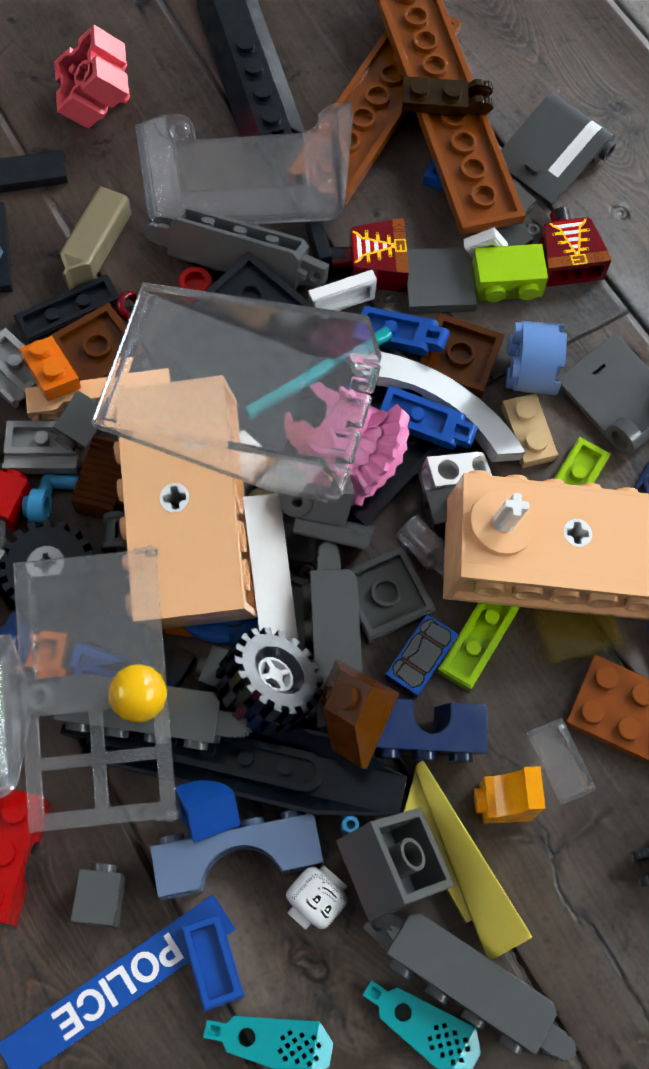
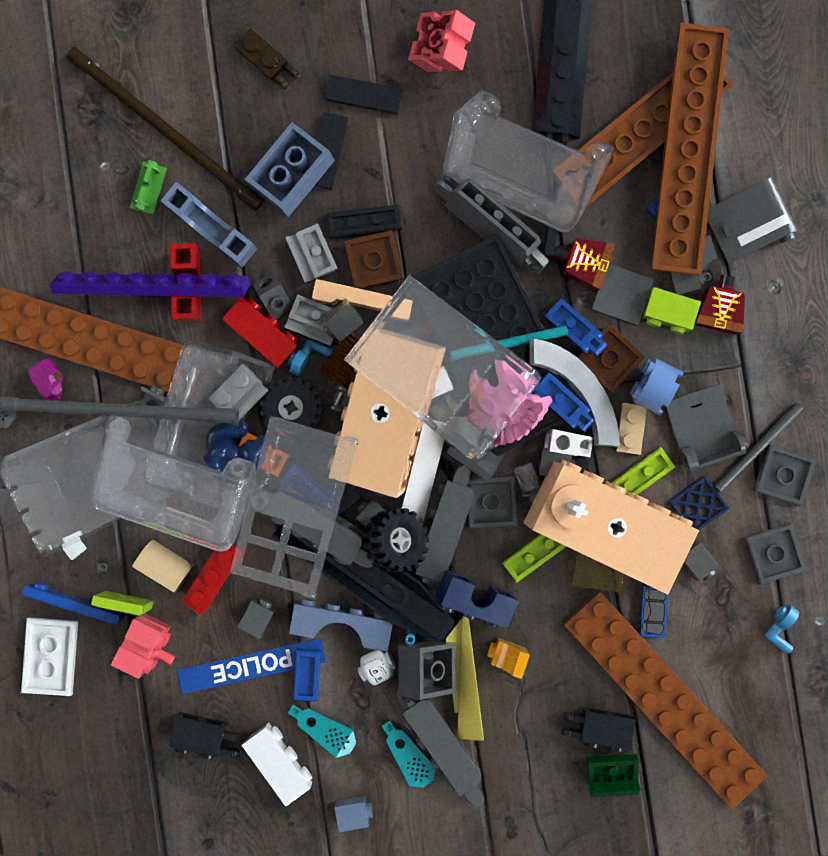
camera: 20 degrees right, 20 degrees up
(50, 368) = (336, 270): orange plate -> none
(94, 236) = (400, 172): dark tan piece -> none
(120, 306) = (398, 236): dark red piece -> none
(137, 693) = (315, 526): yellow piece -> none
(195, 279) = (455, 233): red tile -> none
(207, 808) = (333, 596): blue brick -> none
(344, 292) = (550, 283): white tile -> none
(355, 712) = (438, 579): reddish brown slope -> none
(421, 656) = (496, 550): tile -> none
(446, 96) = (686, 157): dark brown hinge -> none
(487, 238) = (664, 284): white tile -> none
(561, 761) = (550, 645): clear tile -> none

